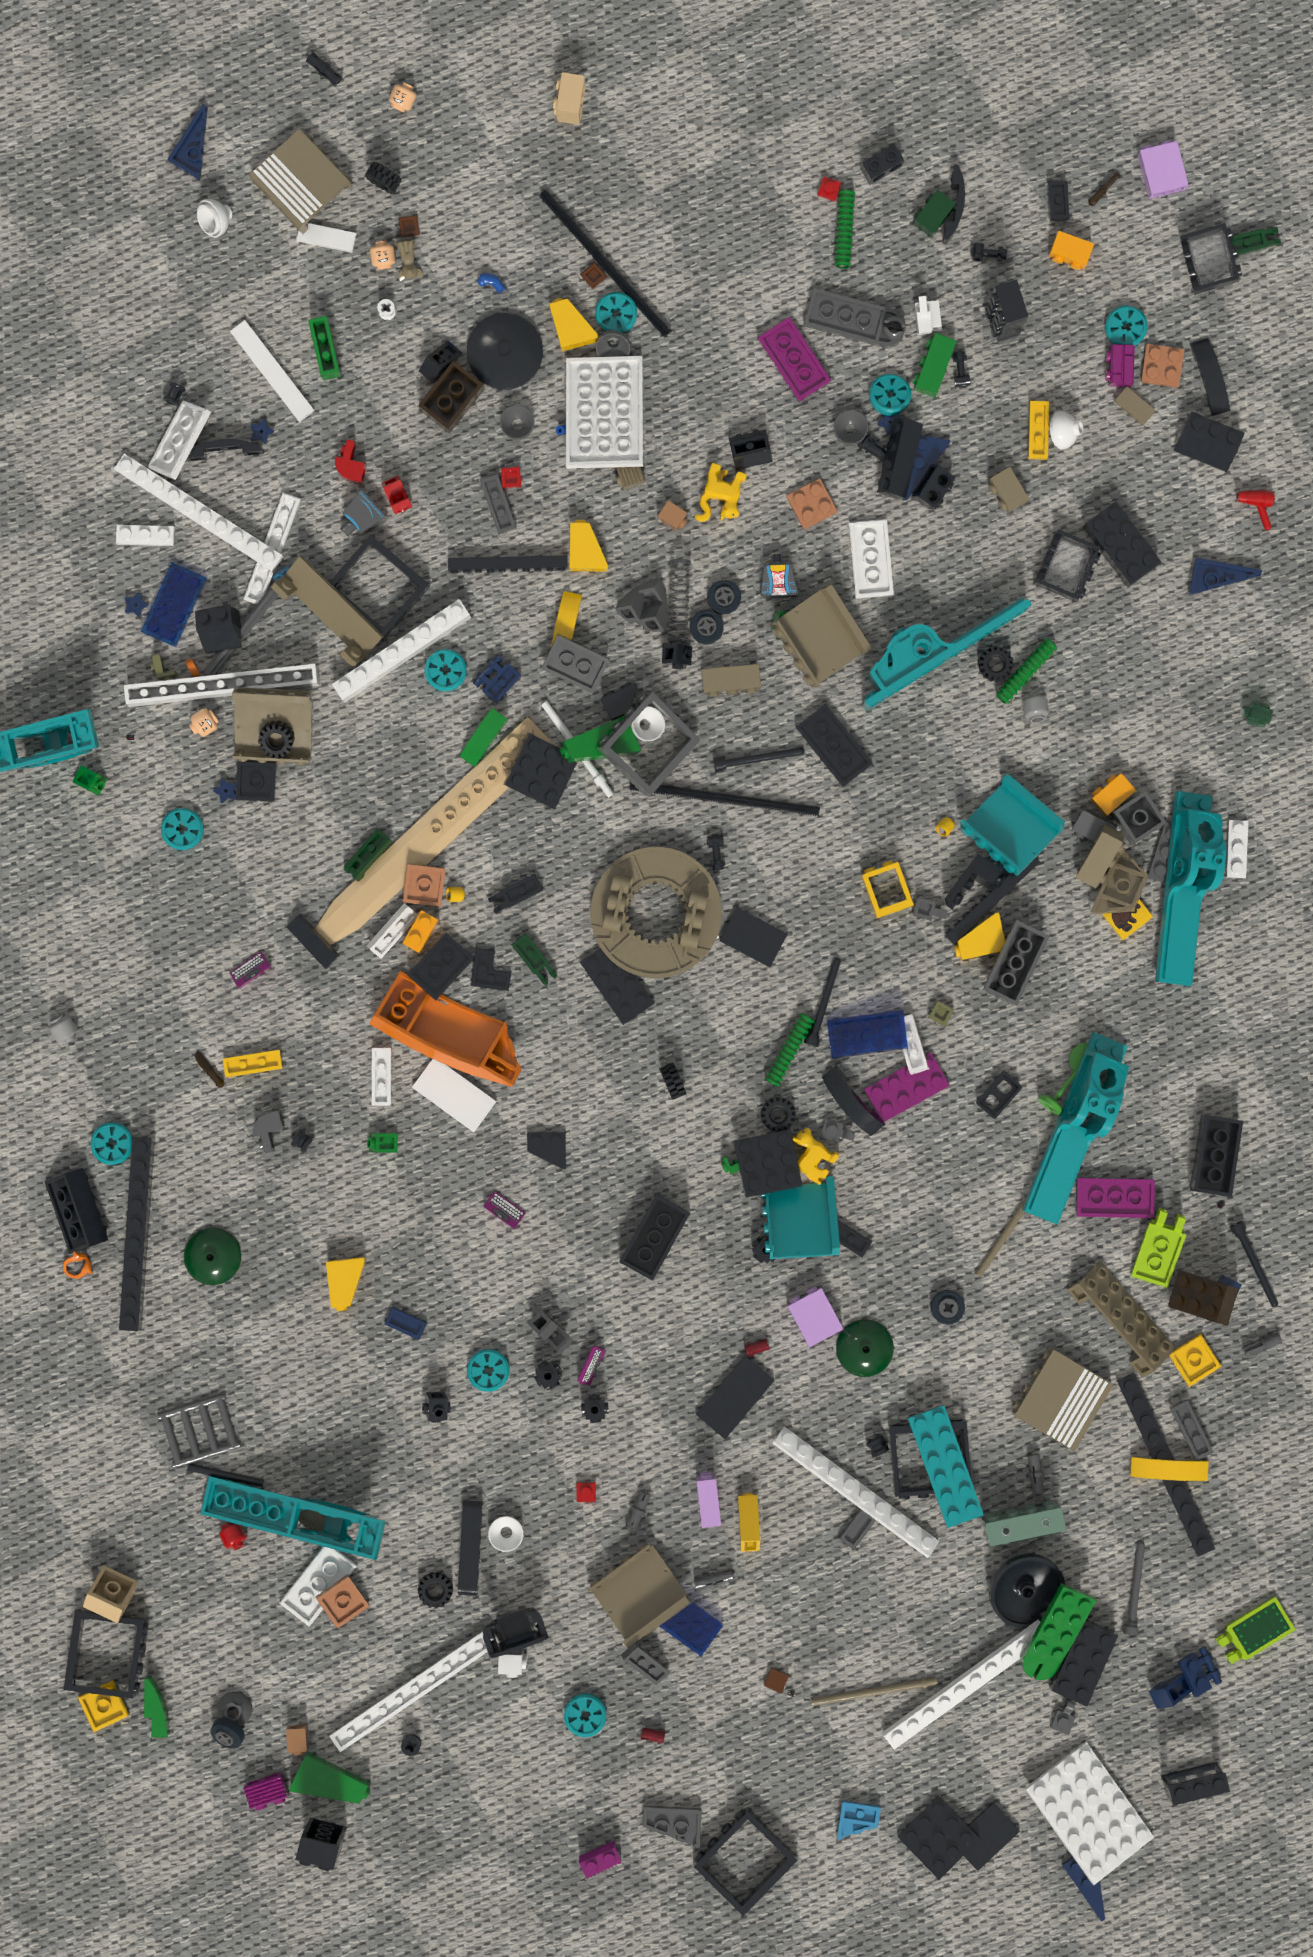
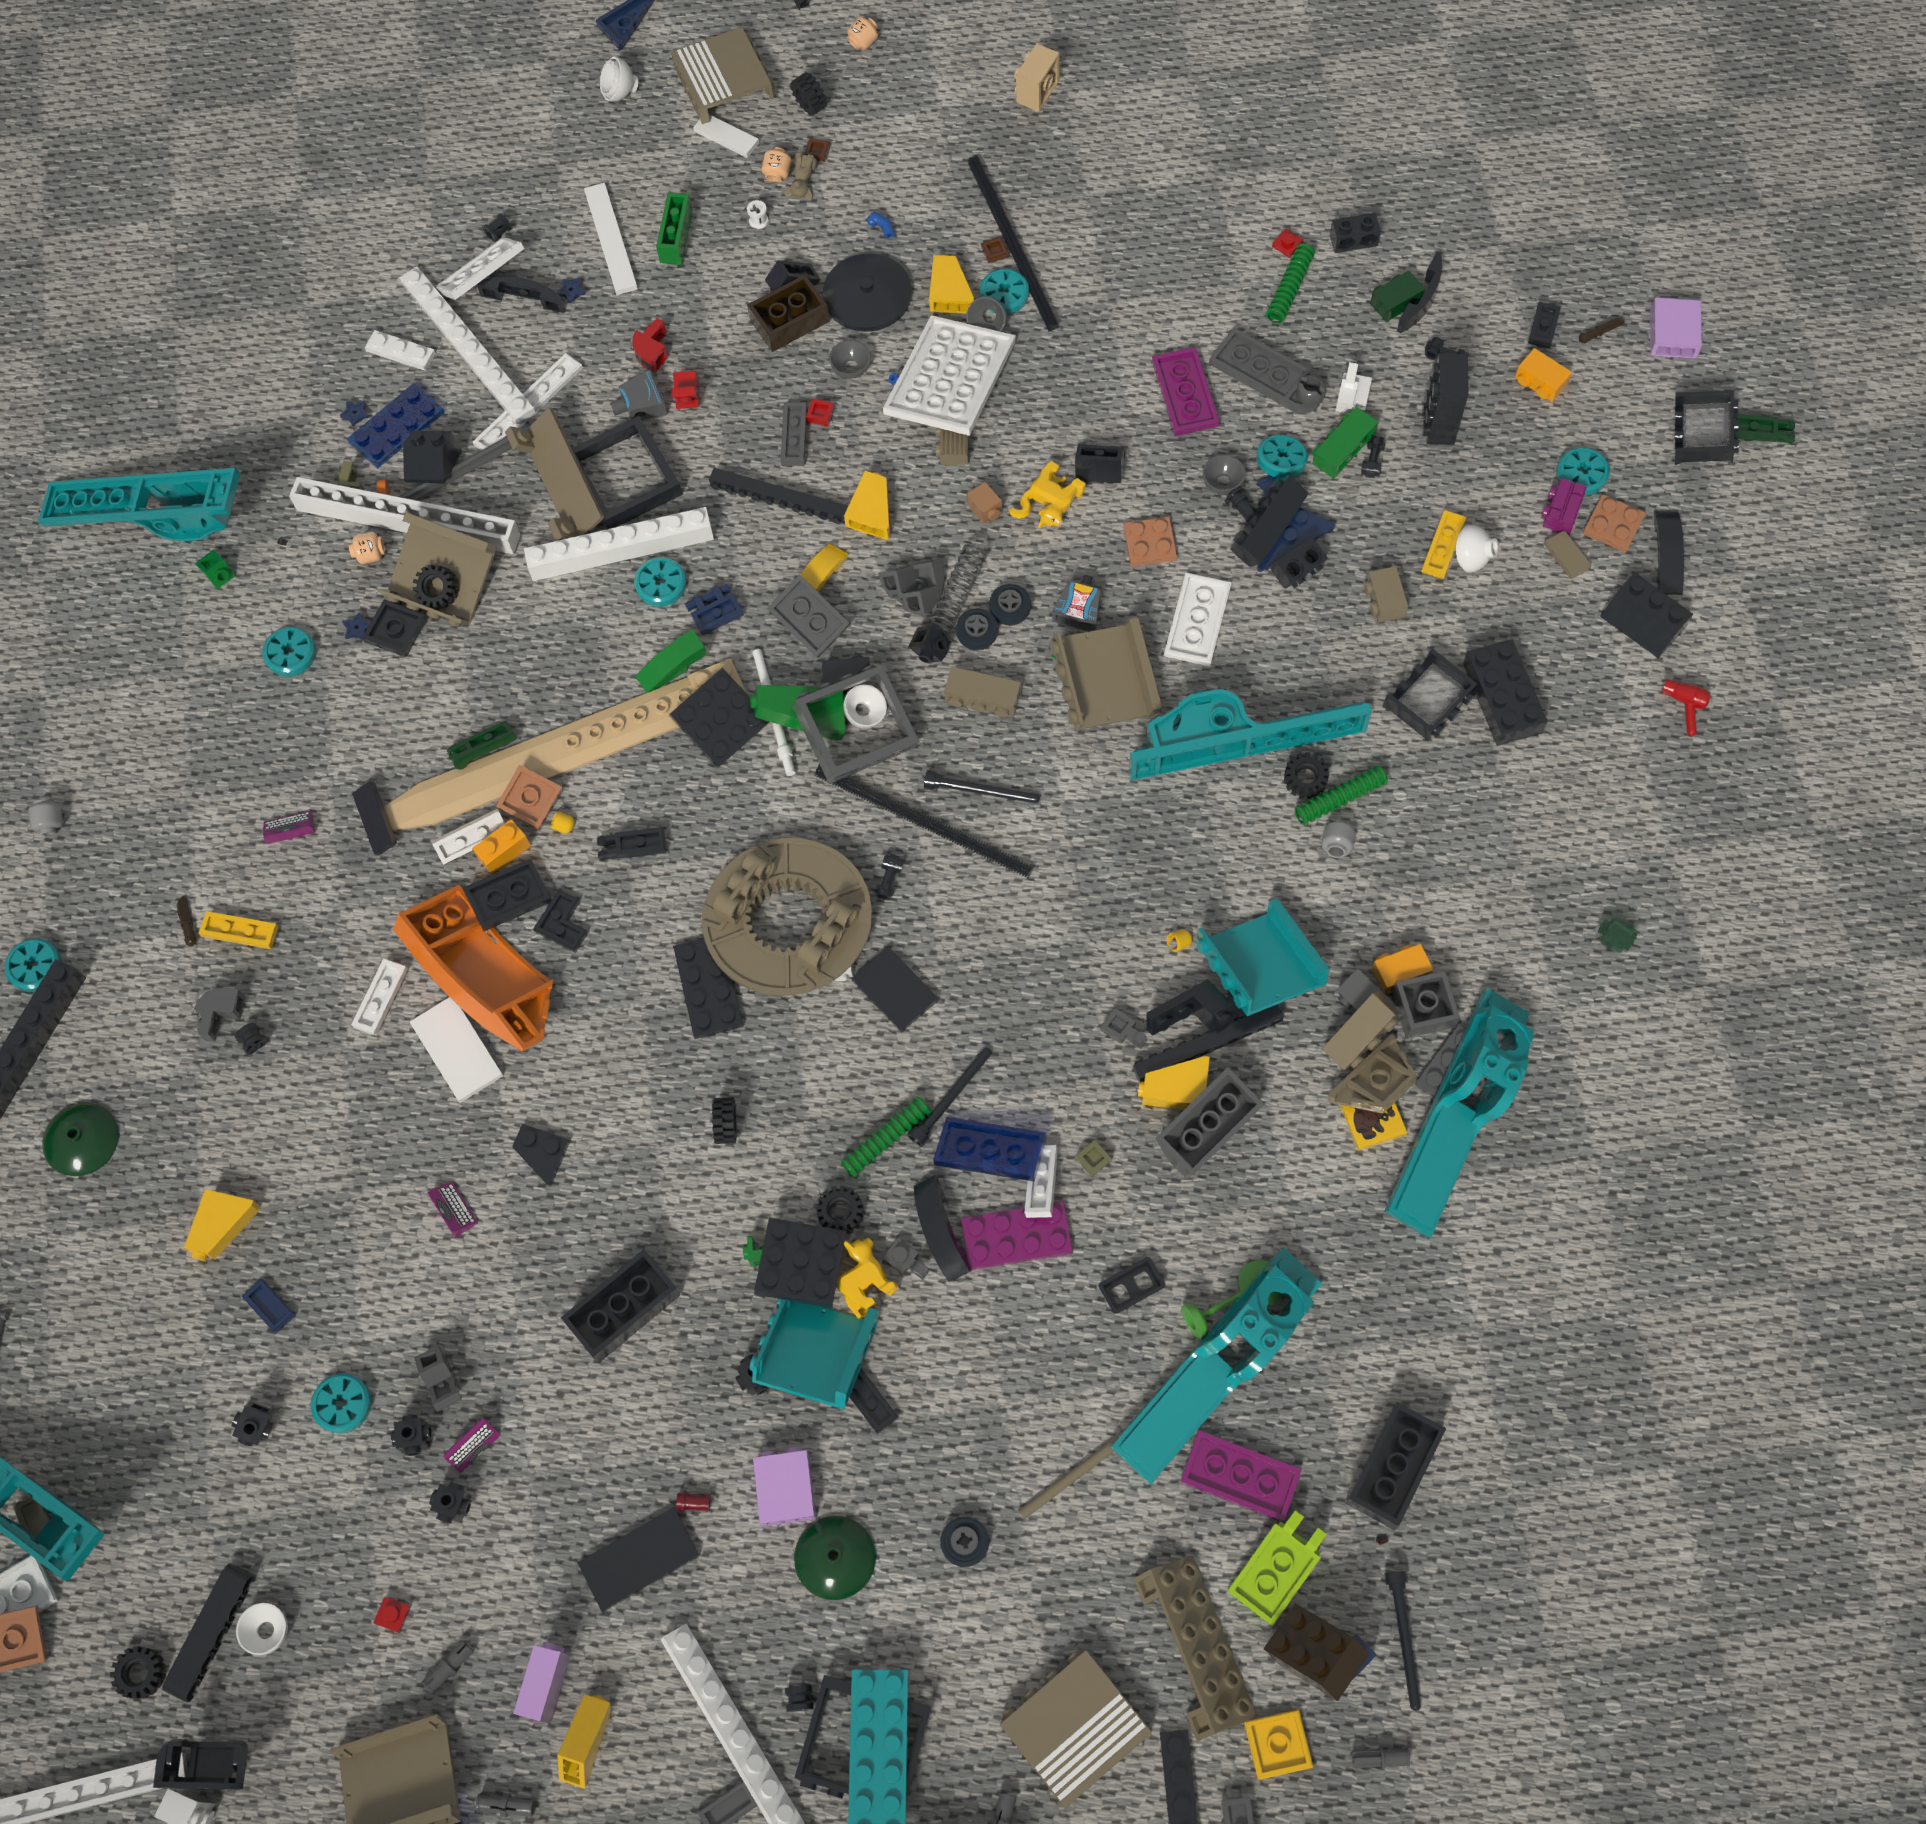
camera: 25 degrees right, 20 degrees down
(383, 1142) = (344, 1074): green bracket -> none
(532, 957) = (620, 922): dark green hinge -> none
(834, 745) = (1077, 803): black plate -> none
(892, 908) = (1080, 1011): yellow window -> none
(1214, 574) = (1608, 761): dark blue wing -> none
(1237, 849) = (1542, 1088): white plate -> none

